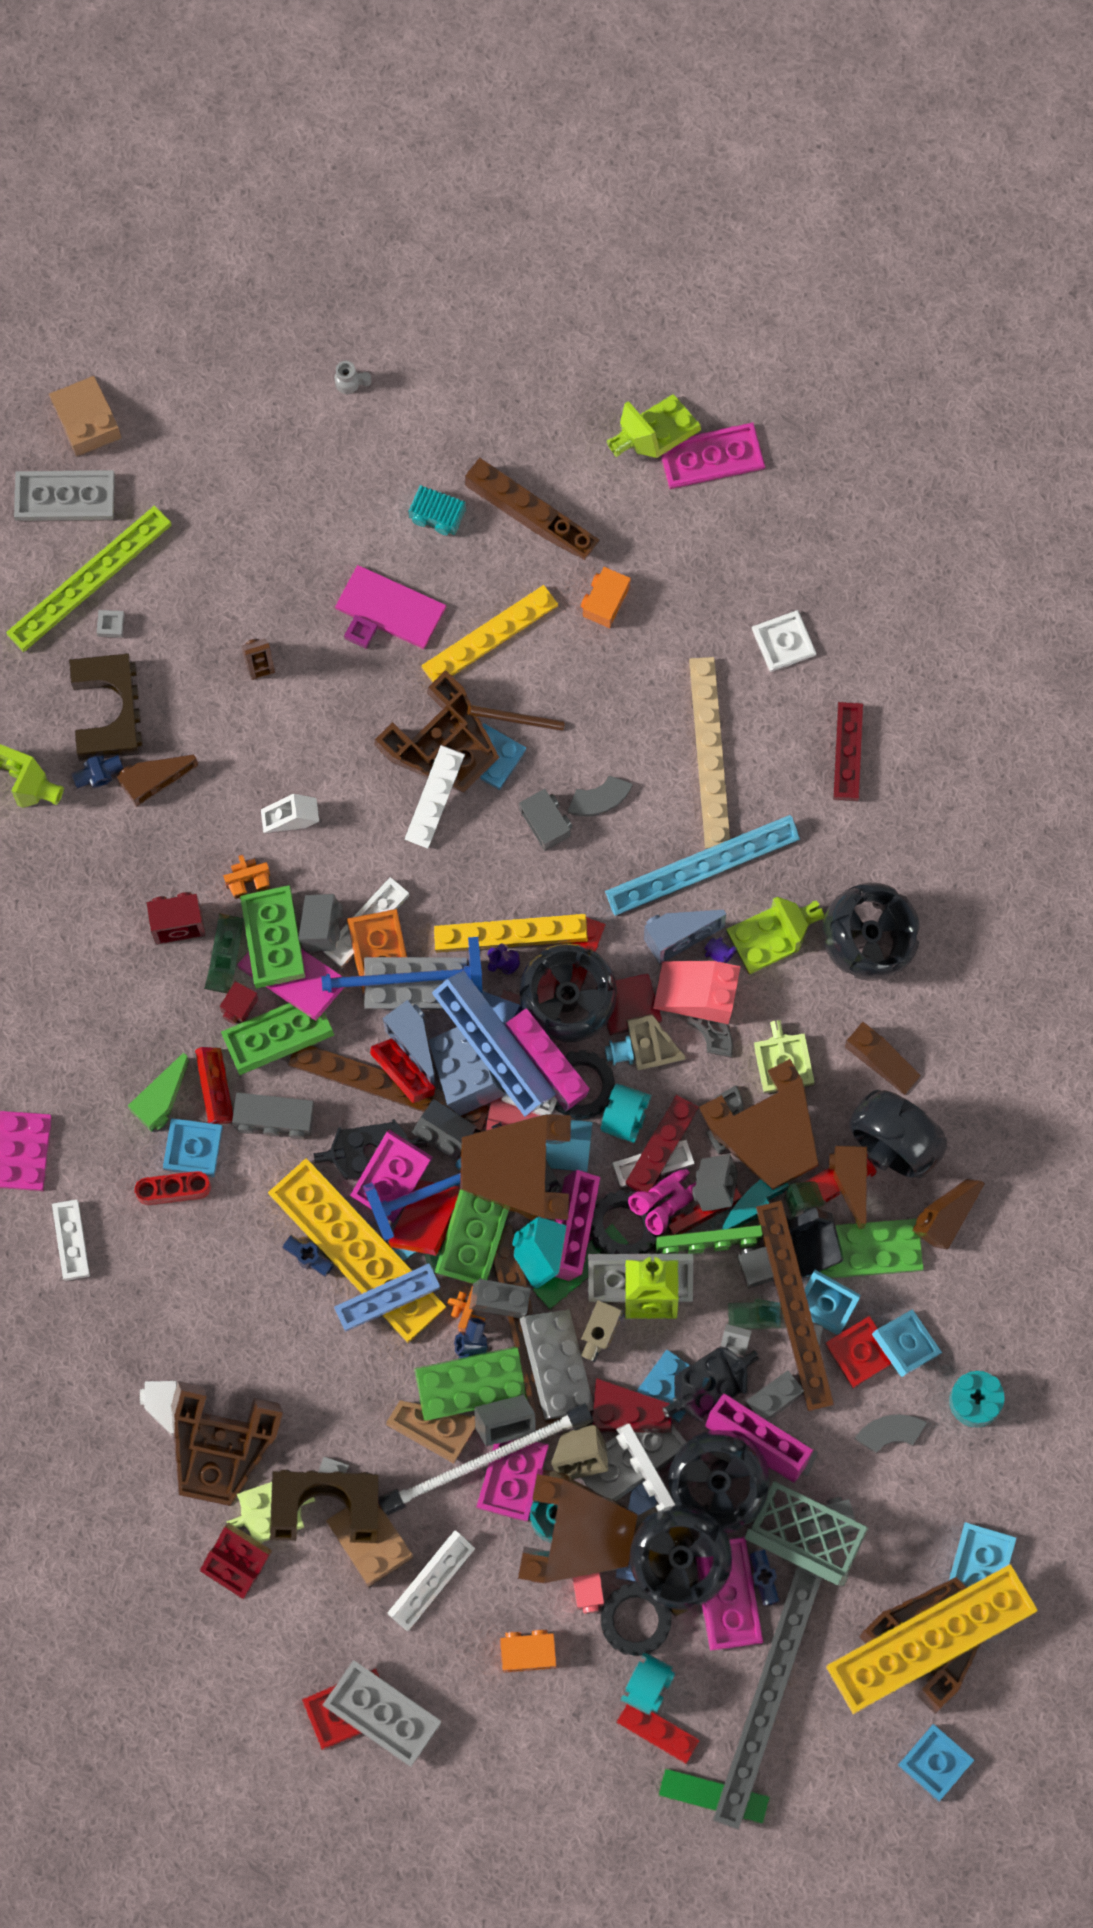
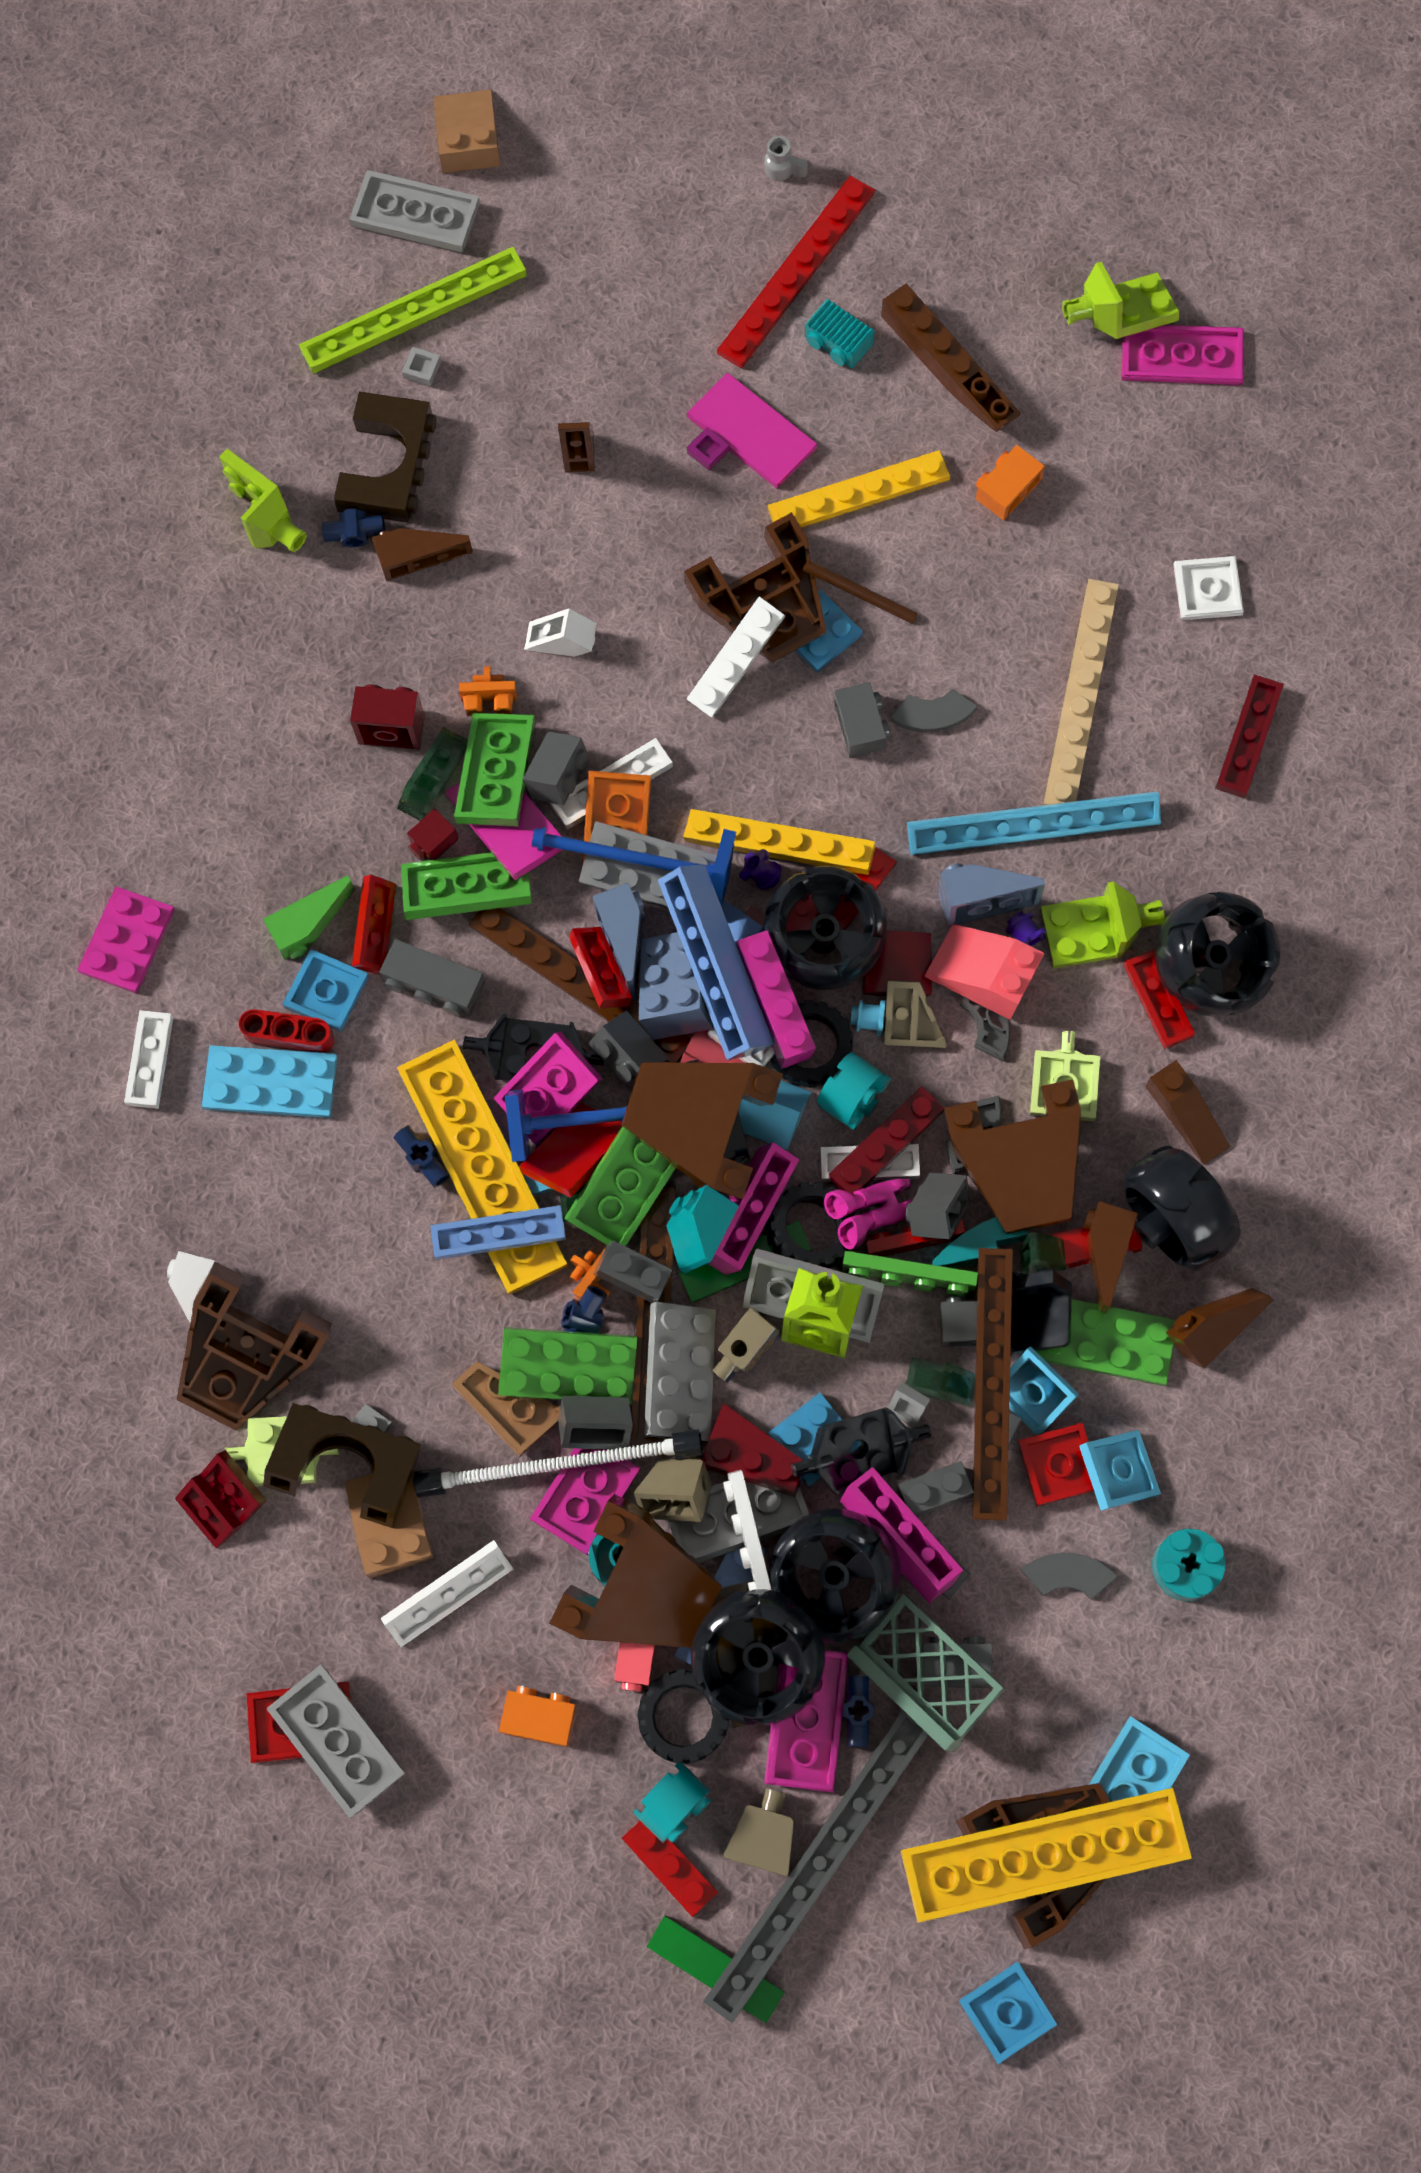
camera: 20 degrees right, 0 degrees up
(170, 1230) = (269, 1081): none -> medium azure plate
(386, 466) = (795, 272): none -> red plate
(721, 1689) = (763, 1836): none -> dark tan torso
(841, 984) = (1161, 1007): none -> red plate

